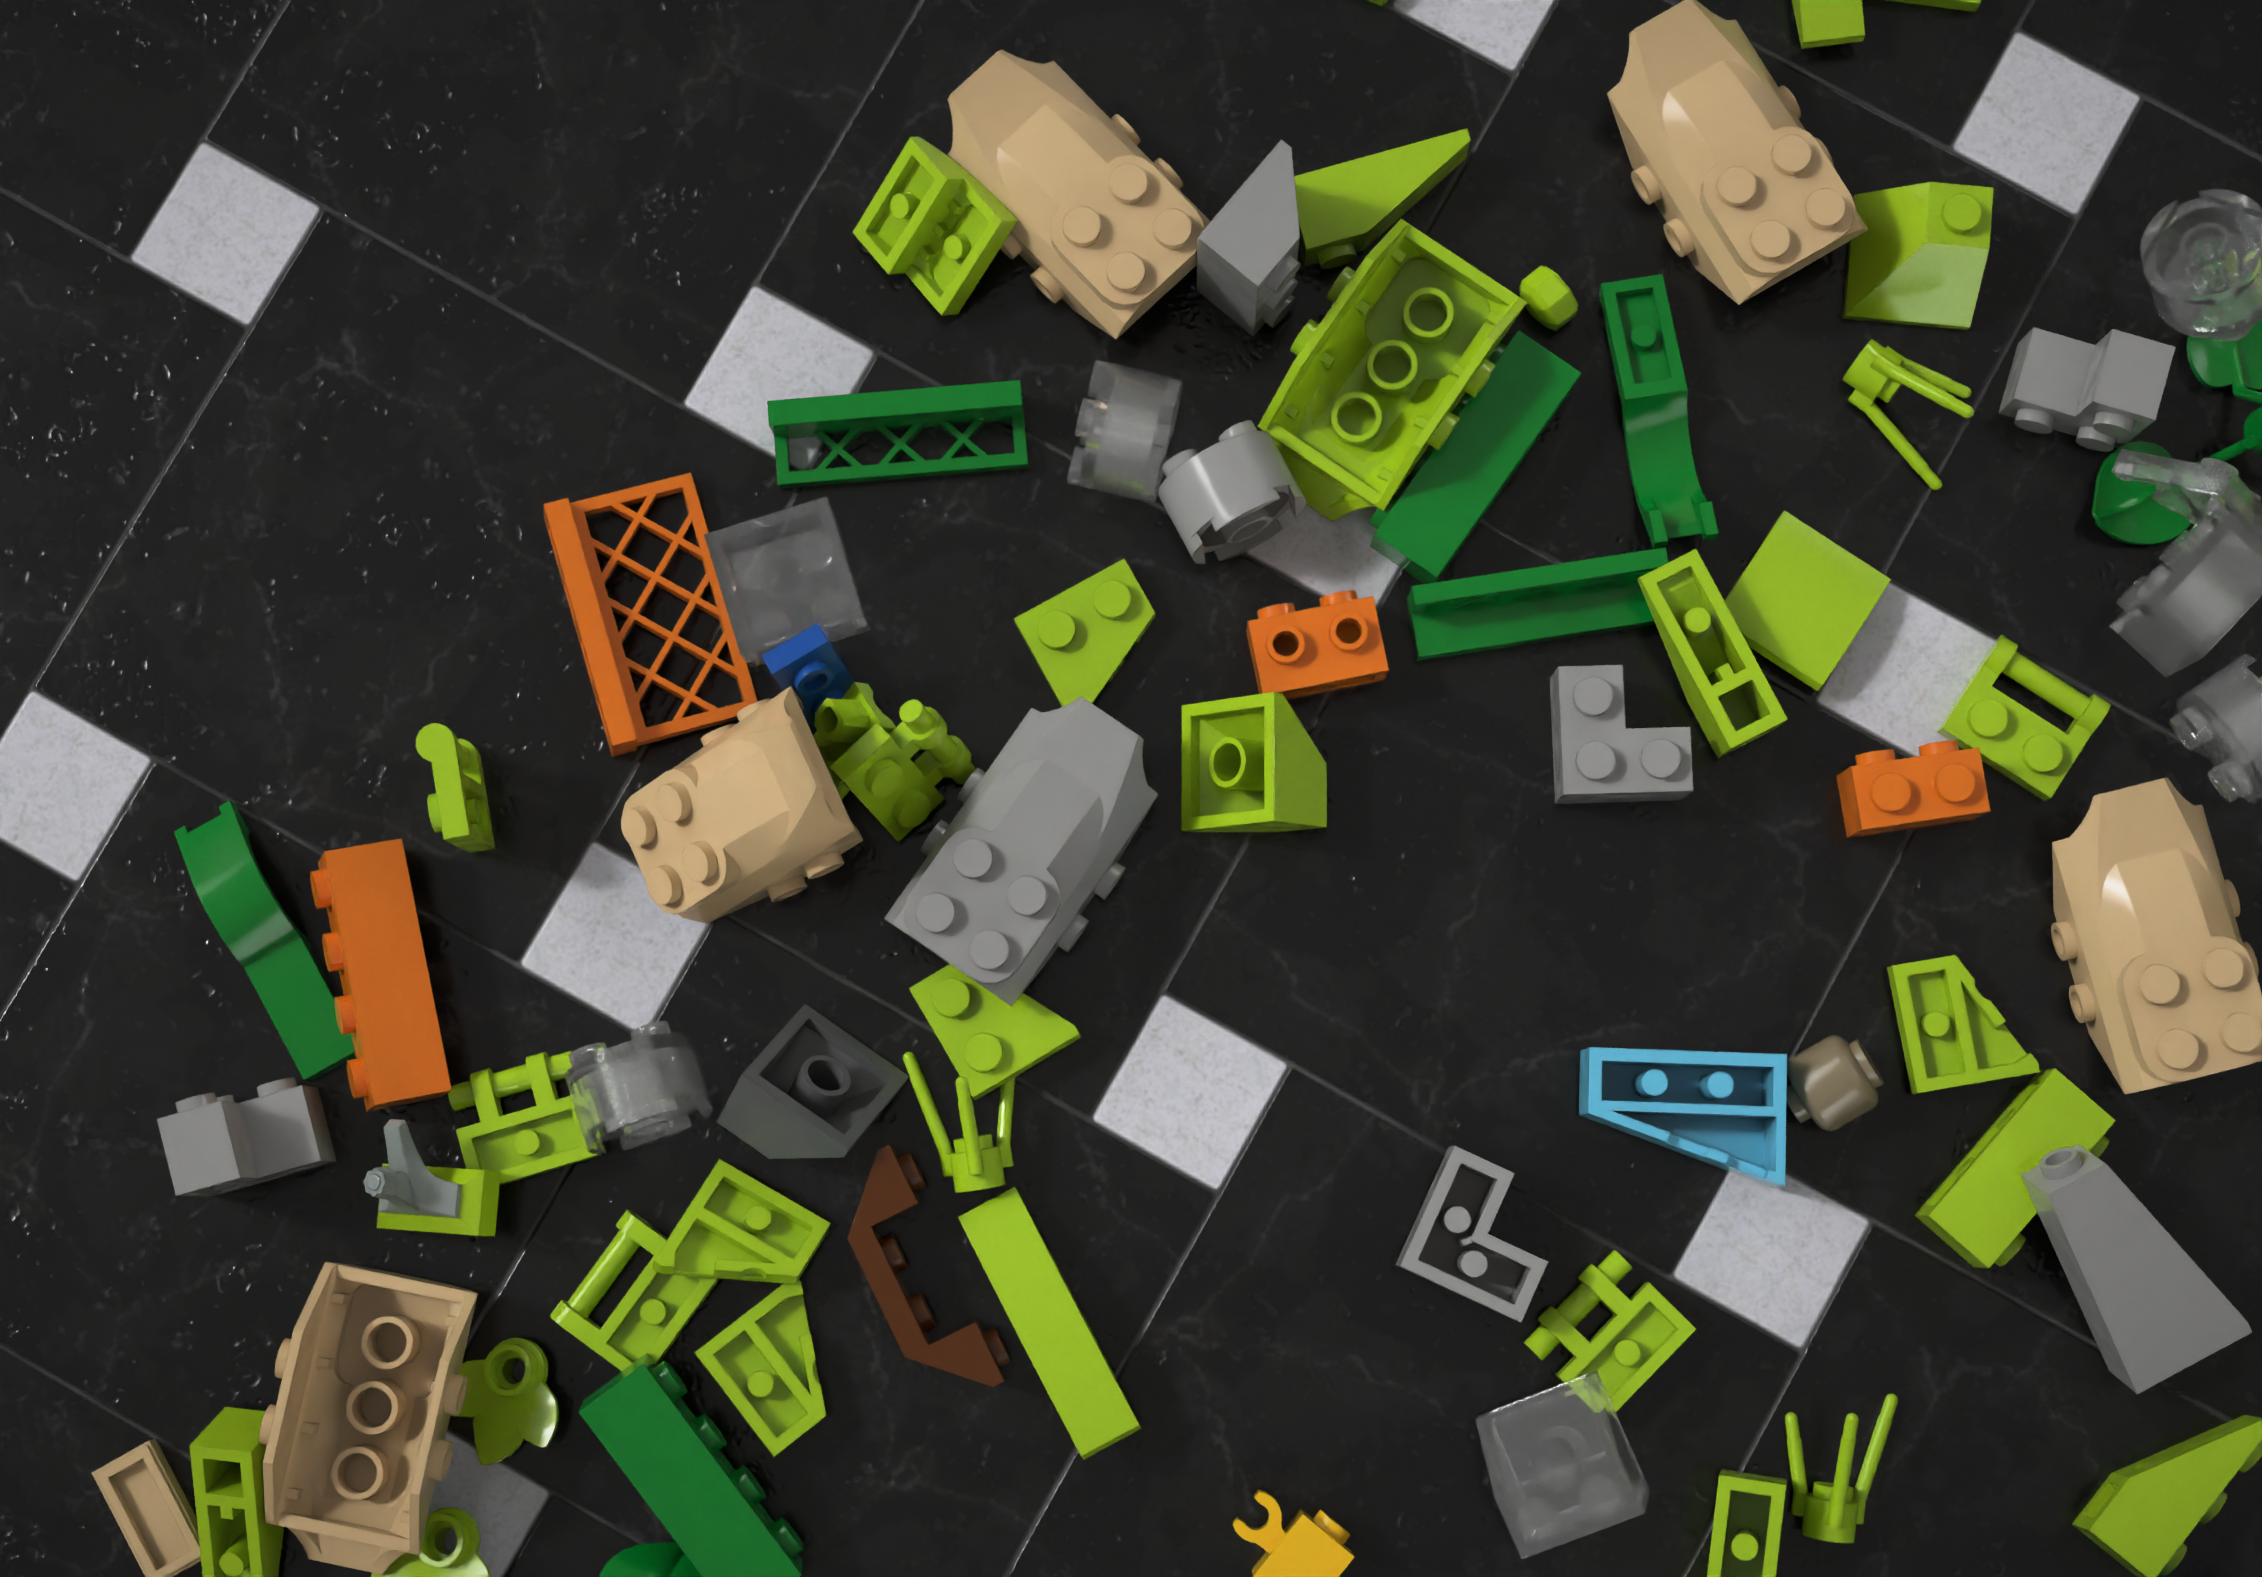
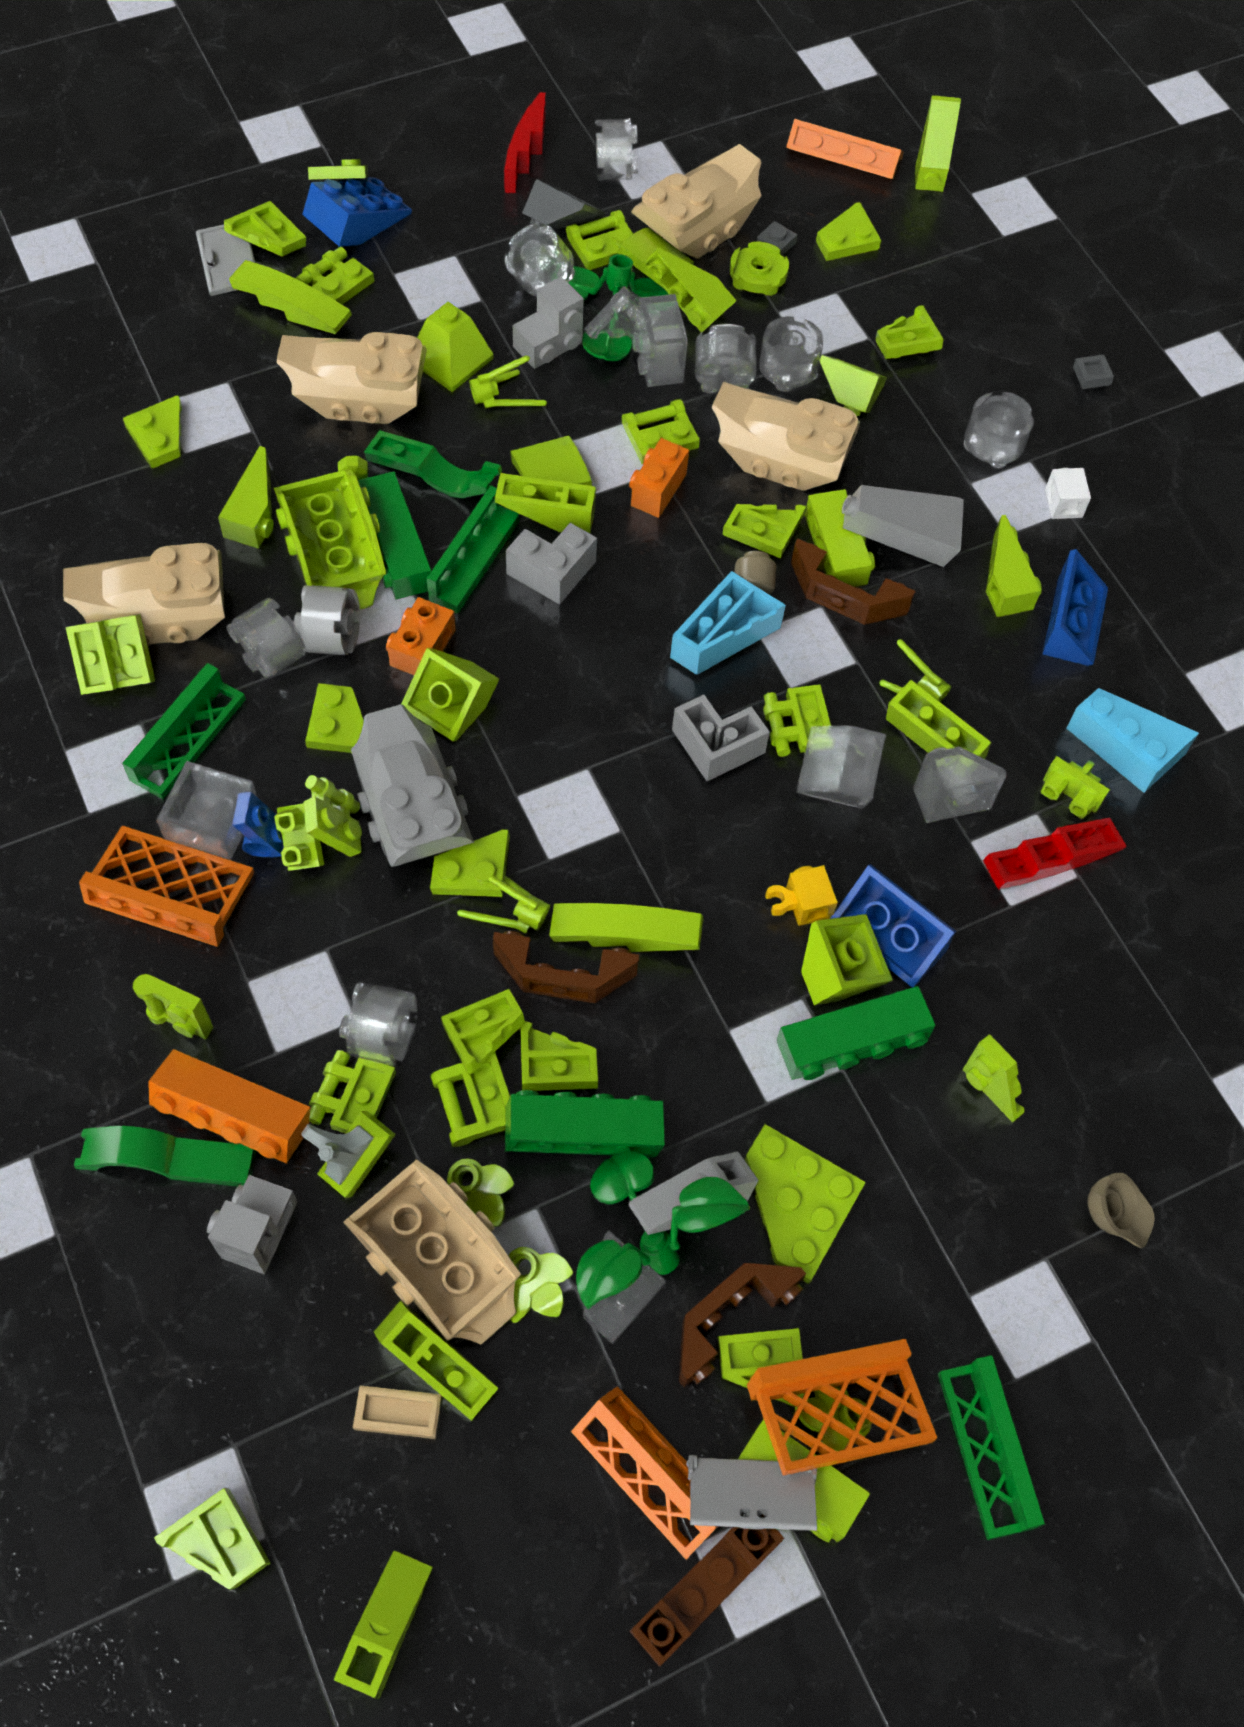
camera: 65 degrees left, 20 degrees down
(740, 816) = (296, 882): tan slope -> none
(810, 1091) = (442, 958): dark grey slope -> none
(1253, 247) = (238, 536): light grey slope -> none
(1954, 1332) = (855, 603): none -> reddish brown slope

